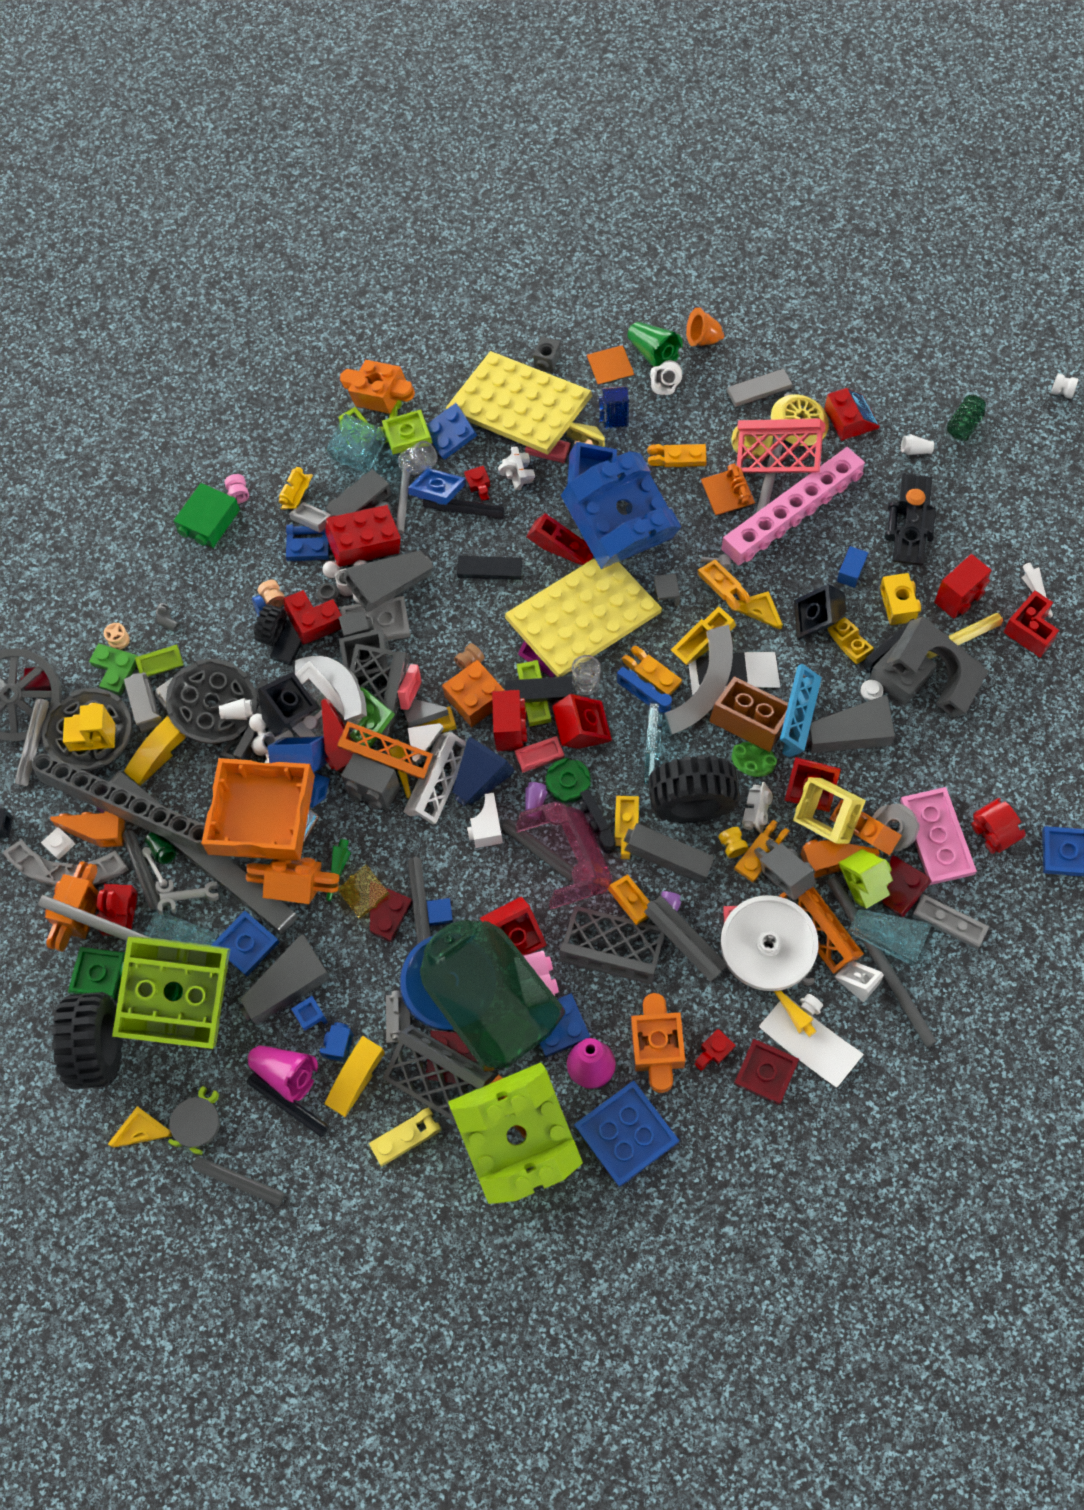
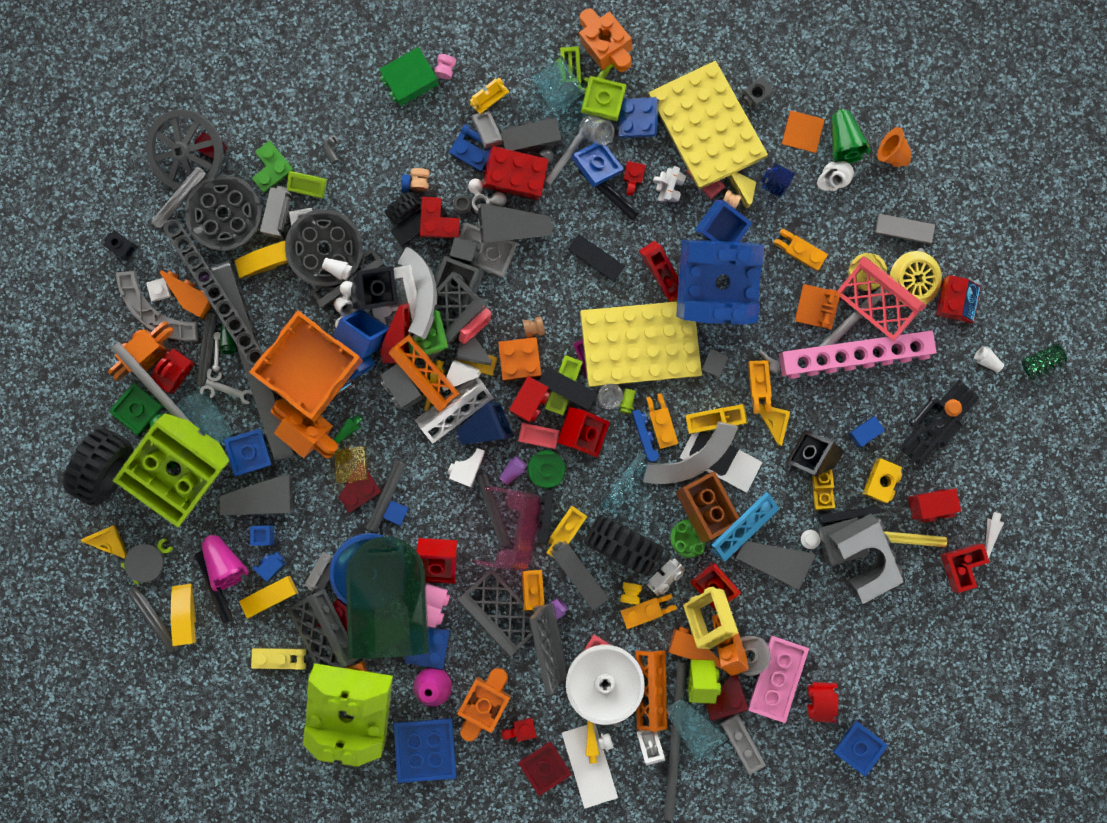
camera: 25 degrees right, 20 degrees up
(90, 729) = (221, 219): yellow brick -> none
(113, 631) = (283, 139): light nougat wheel -> none
(270, 1154) = (182, 615): none -> yellow slope
(608, 677) = (627, 401): none -> lime pin
(786, 869) = (650, 641): dark grey hinge -> none

